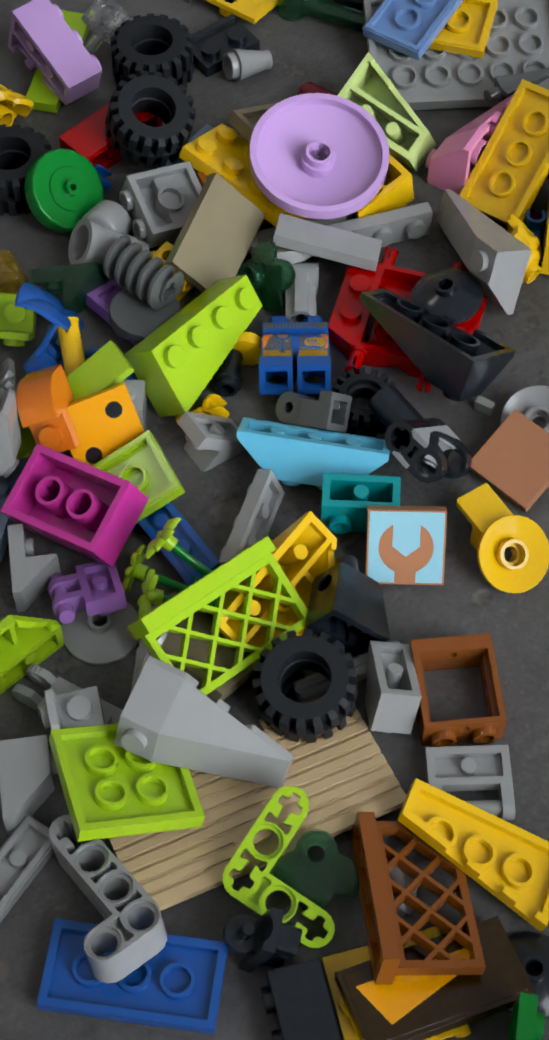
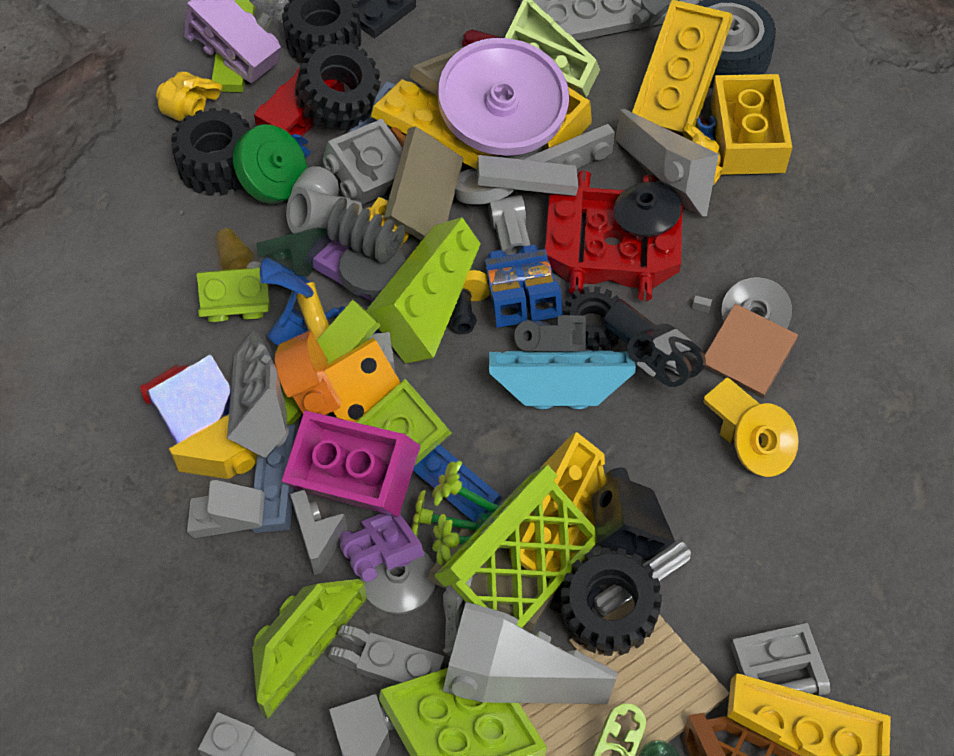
camera: 10 degrees left, 0 degrees up
(72, 709) = (395, 664): light grey bracket -> none
(209, 439) = (460, 378): light grey slope -> none
(211, 405) = (453, 346): yellow hand -> none
(244, 63) = (408, 20): light grey cone -> none
(256, 514) = (520, 447): light grey plate -> none
(268, 275) = (479, 213): clear green plate -> none
(347, 498) = (616, 415): teal brick -> none
(391, 688) = (688, 588): light grey slope -> none
(406, 544) = (668, 448): tile -> none
(445, 355) = (663, 264): black wedge -> none
(458, 154) = (626, 72): bright pink wedge -> none
(458, 653) = (737, 543): dark orange window -> none

